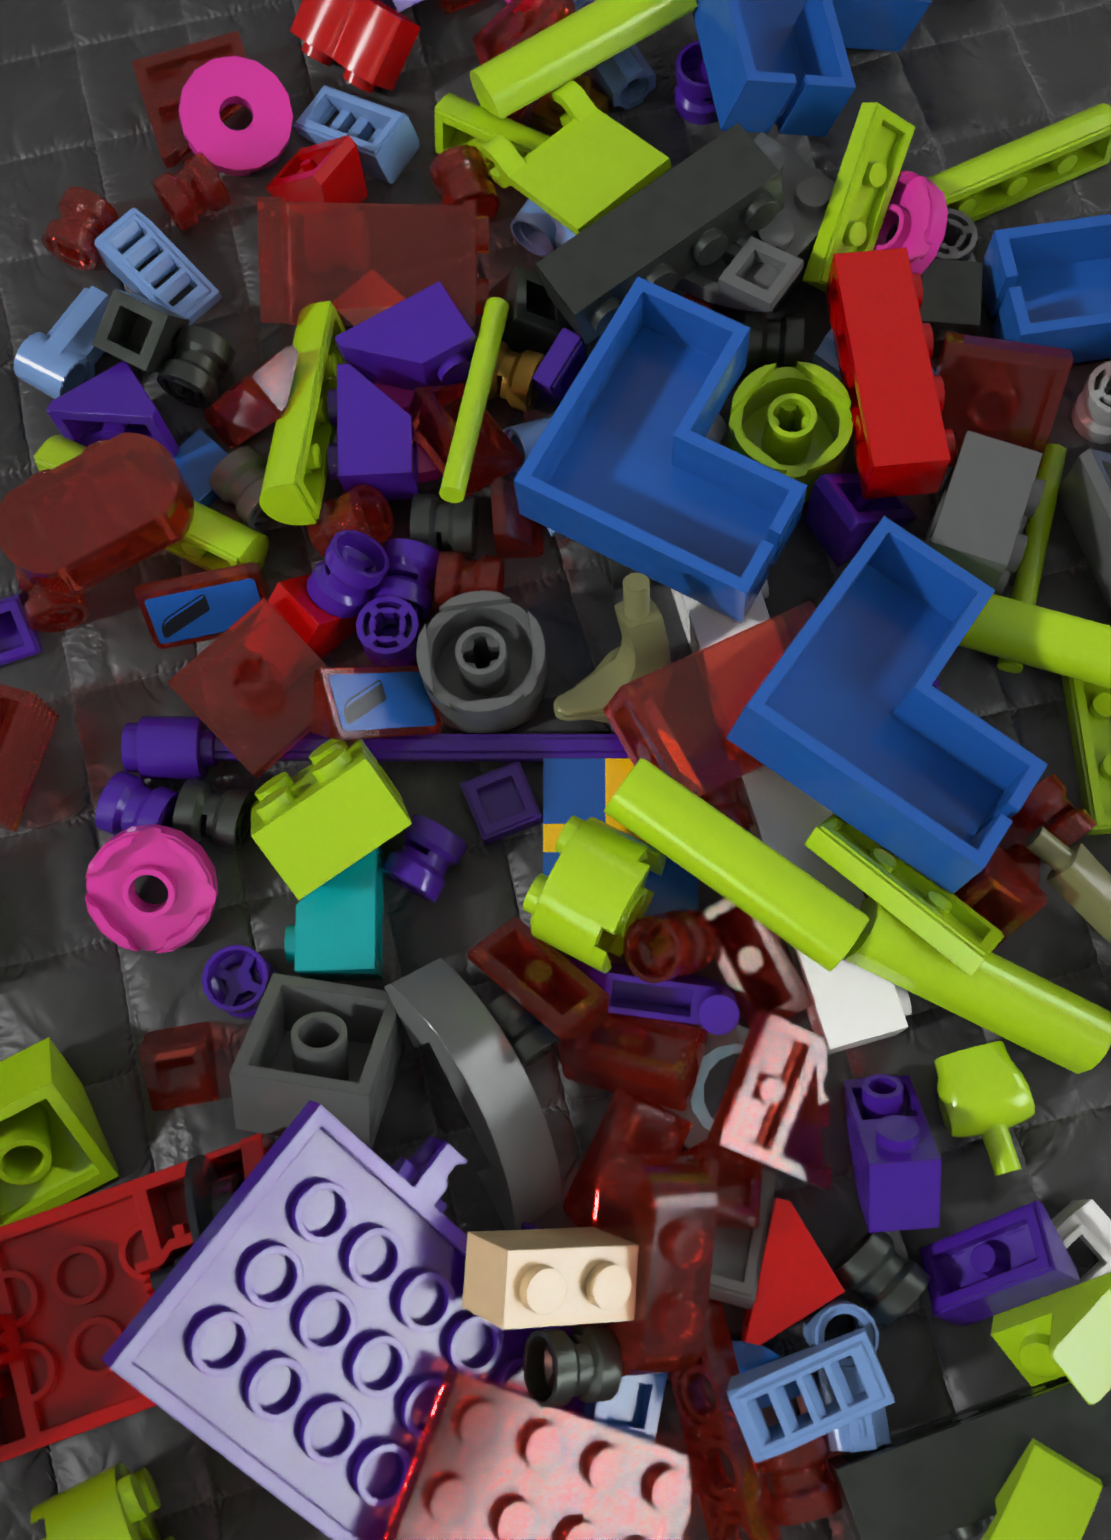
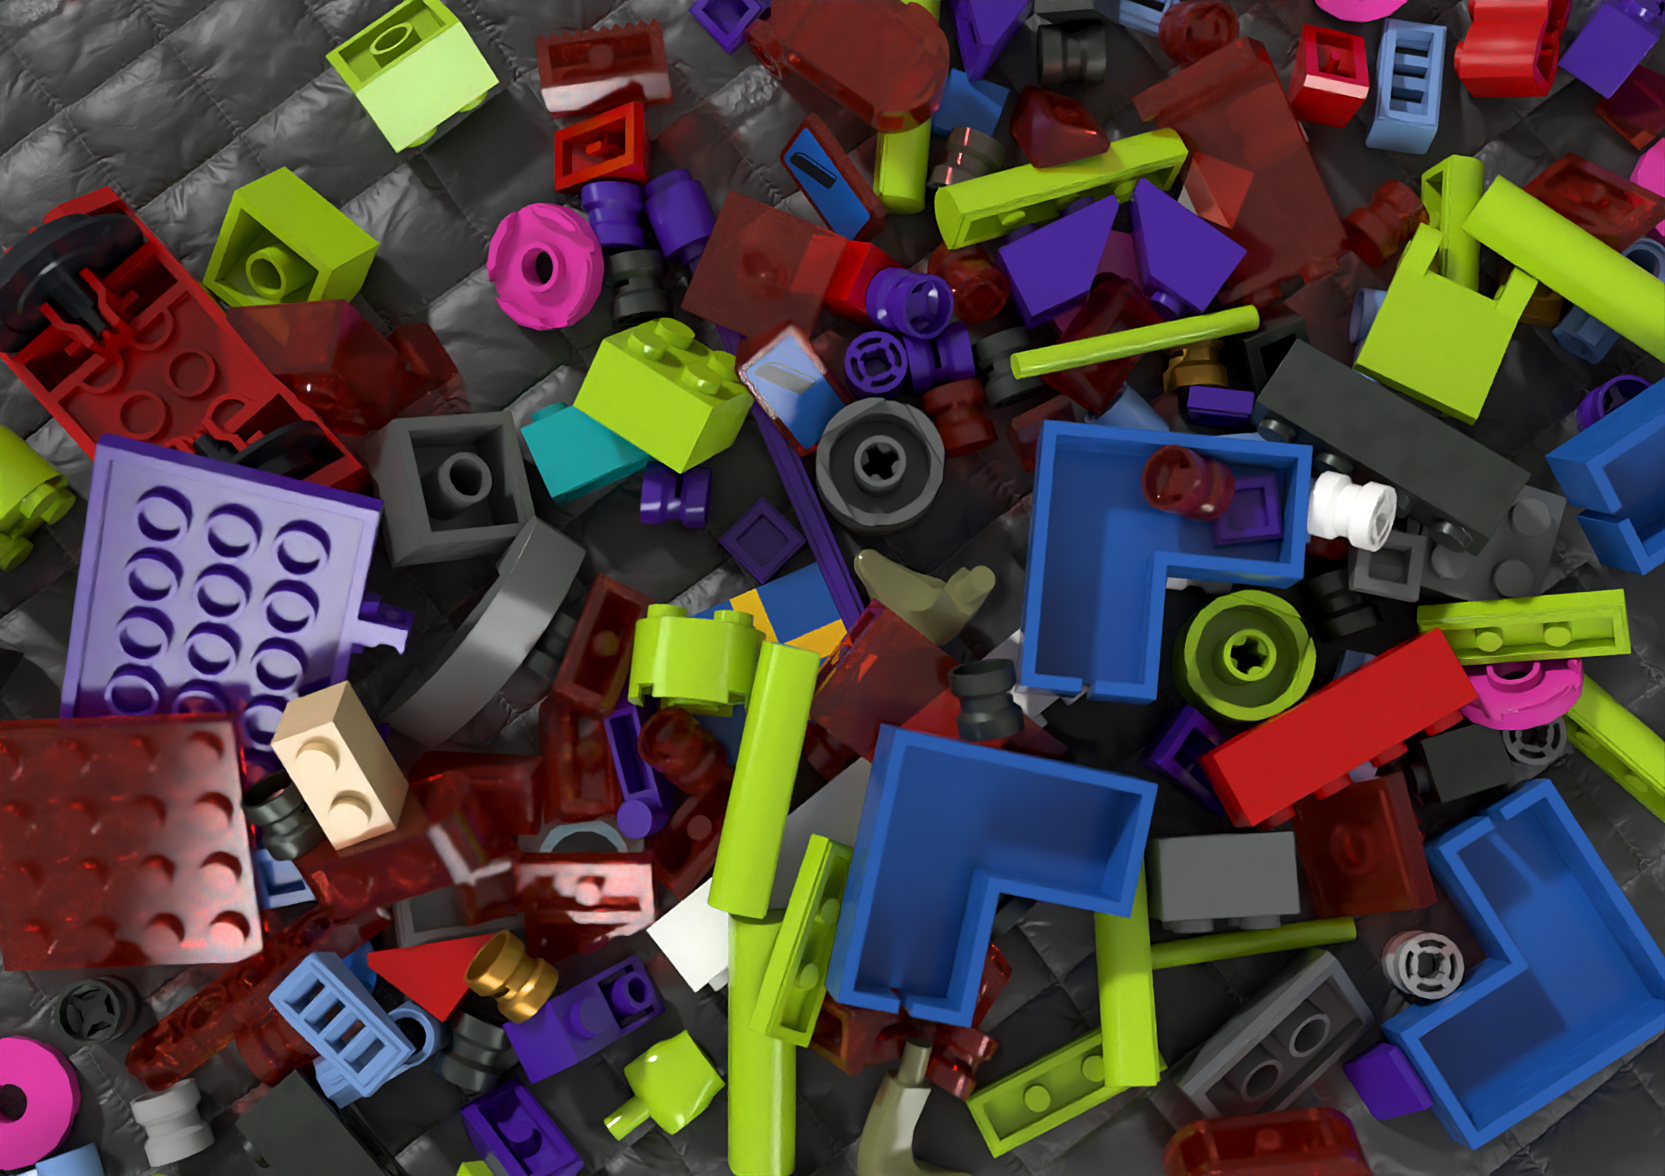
camera: 60 degrees right, 10 degrees up
(68, 790) = (604, 149): none -> red slope
(132, 1125) = (327, 360): none -> clear red slope
(229, 258) = (1210, 25): none -> clear red wheel
(229, 976) = (490, 376): dark purple wheel -> none
(610, 397) = (1187, 483): none -> clear red wheel
(664, 366) = (1252, 513): none -> dark purple tile
(706, 272) = (1351, 510): none -> white wheel
(744, 635) = (984, 701): none -> pearl dark grey wheel
(825, 1198) = (511, 977): none -> pearl gold wheel

